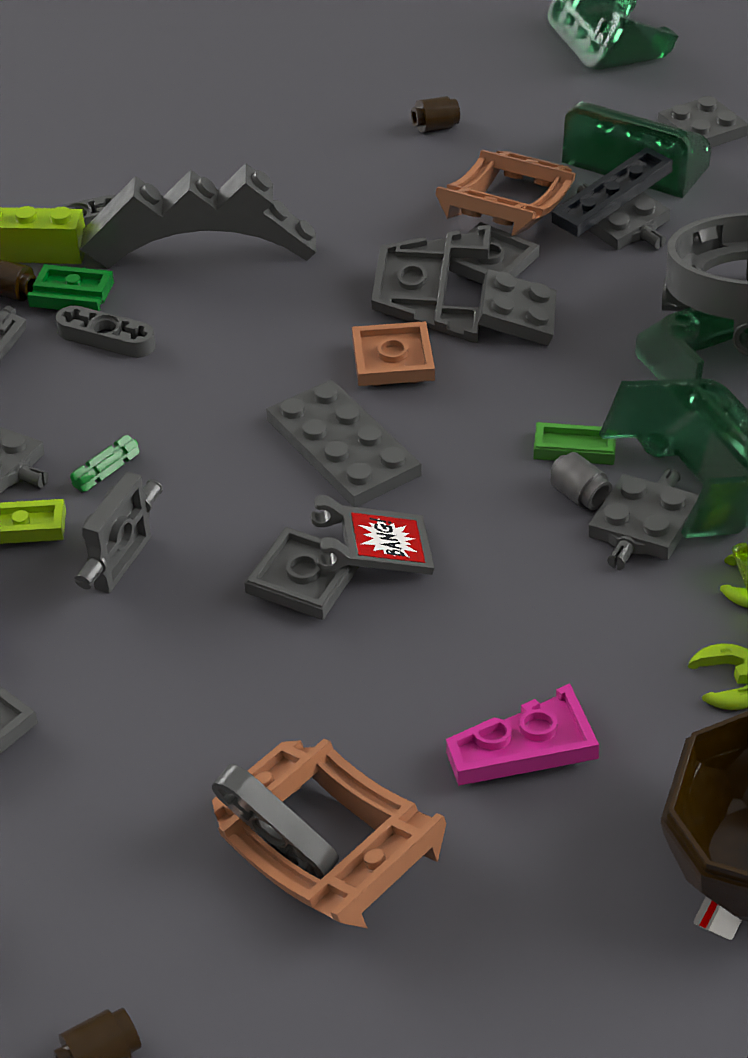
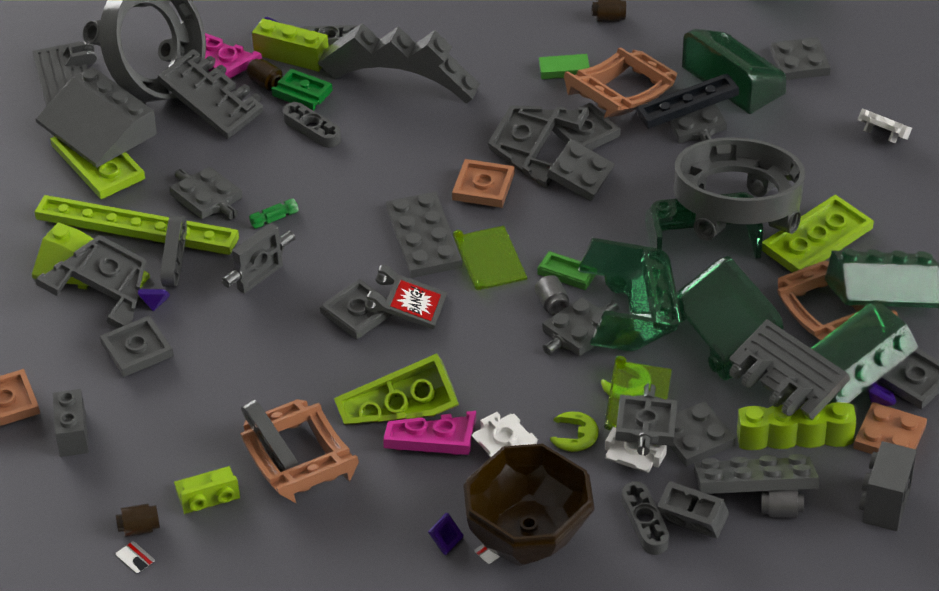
camera: 20 degrees right, 0 degrees up
(195, 947) = (207, 489): none -> lime bracket
(411, 190) = (556, 66): none -> bright green tile
(454, 686) = (405, 394): none -> lime wedge
(455, 452) = (489, 257): none -> clear neon green piece
(641, 908) = (445, 533): none -> dark purple slope
(642, 717) = (502, 432): none -> white piece

